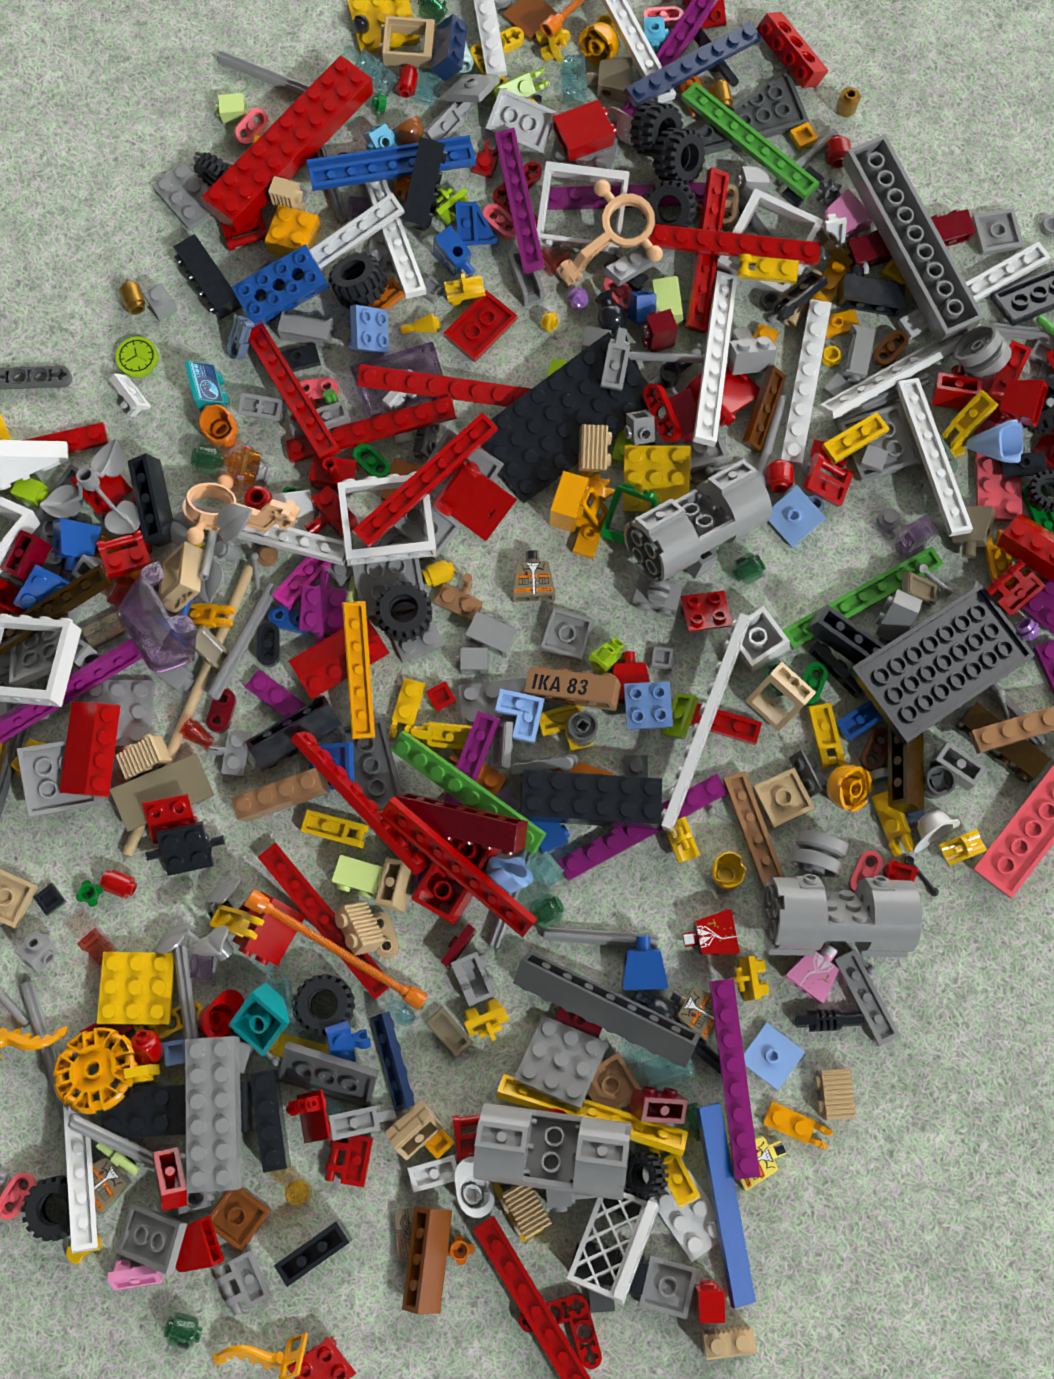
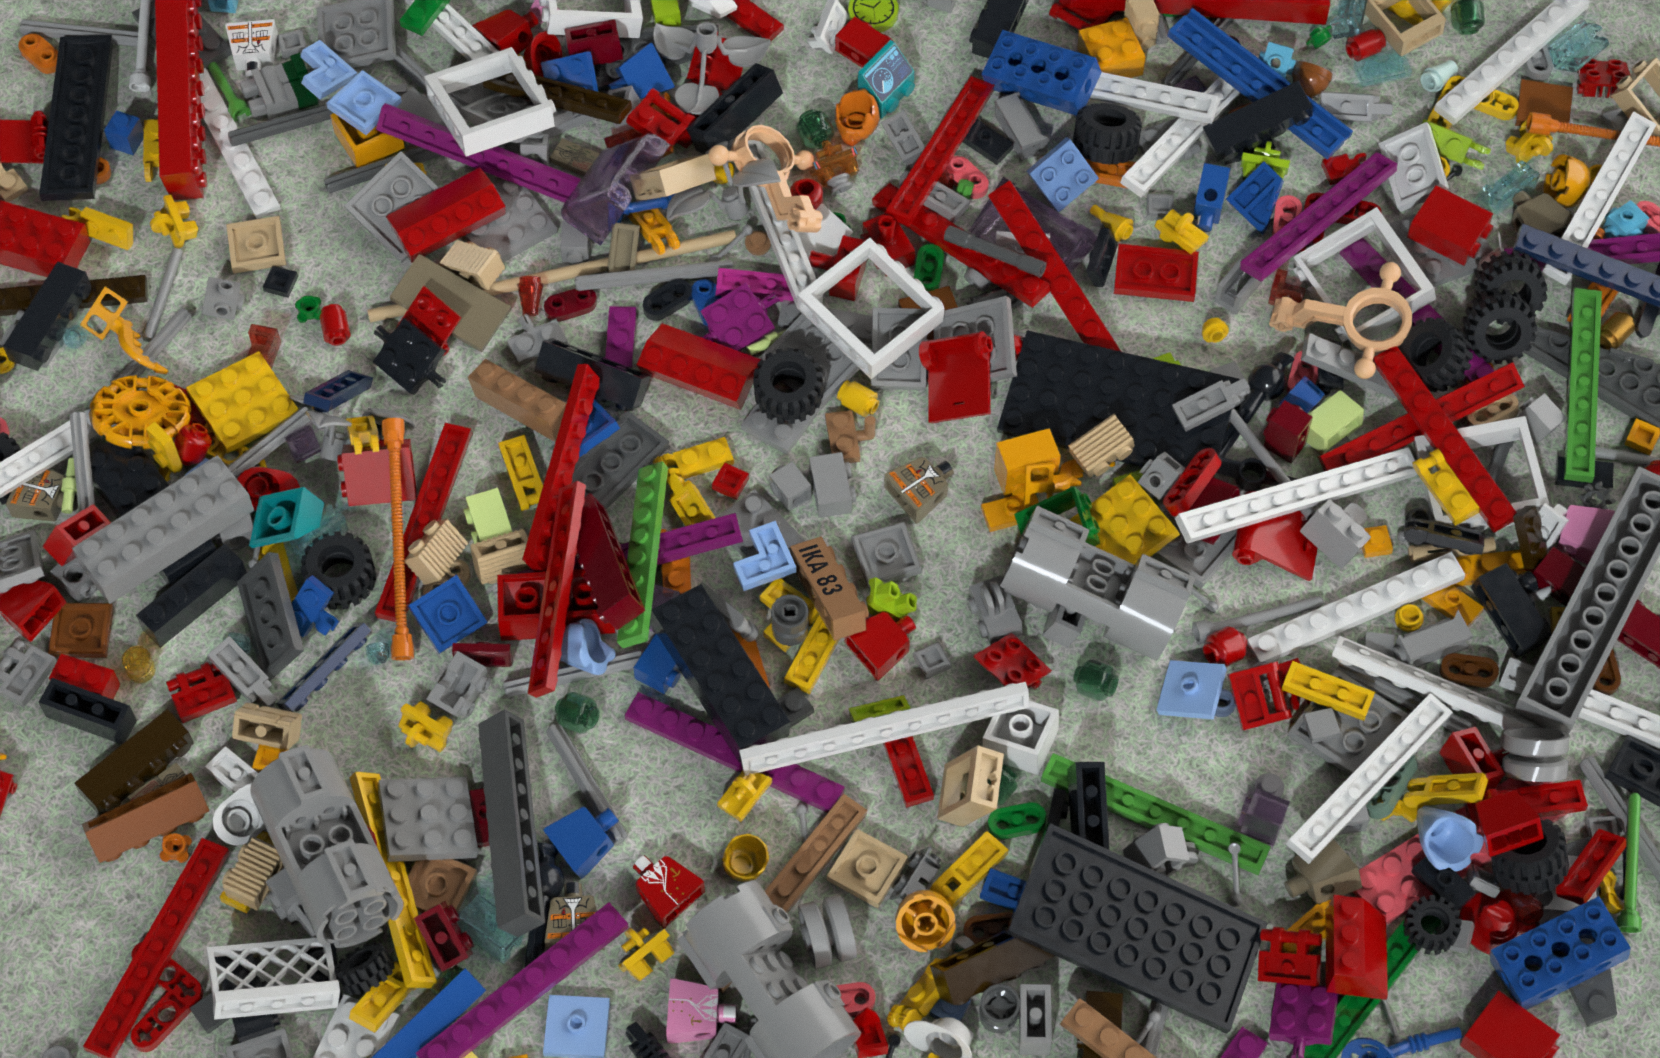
camera: 55 degrees right, 15 degrees down
(164, 381) = (859, 41): none -> red brick
(184, 917) = (337, 391): none -> dark blue plate
(208, 555) = (708, 185): light grey piece -> none
(239, 336) = (960, 75): sand blue piece -> none
(285, 1239) = (86, 676): none -> red brick
(313, 1115) = (228, 617): red hinge -> none
(358, 670) = (695, 382): light orange tile -> none
(376, 1241) = (134, 763): none -> dark brown brick
(412, 950) = (447, 614): none -> blue plate
(422, 401) = (1021, 261): none -> dark grey piece
(425, 480) = (934, 308): red plate -> none
(445, 351) = (1101, 257): none -> black plate
(449, 47) = (1431, 53): dark blue brick -> none
(449, 1032) = (388, 703): dark tan tile -> none
(472, 88) = (1407, 101): light grey plate -> none
(502, 746) = (719, 564): light grey plate -> none
(550, 873) = (615, 687): clear light blue hinge -> none
(578, 298) = (1263, 339): medium lavender plate -> none
(611, 733) = (811, 658): none -> yellow plate
(648, 705) = (863, 667): medium blue plate -> none
(764, 408) = (1290, 587): reddish brown plate -> none
(919, 588) = (1208, 860): dark tan tile -> none
(1028, 629) = (1255, 1007): medium lavender plate -> none
(1035, 442) = (1482, 880): none -> light grey tile

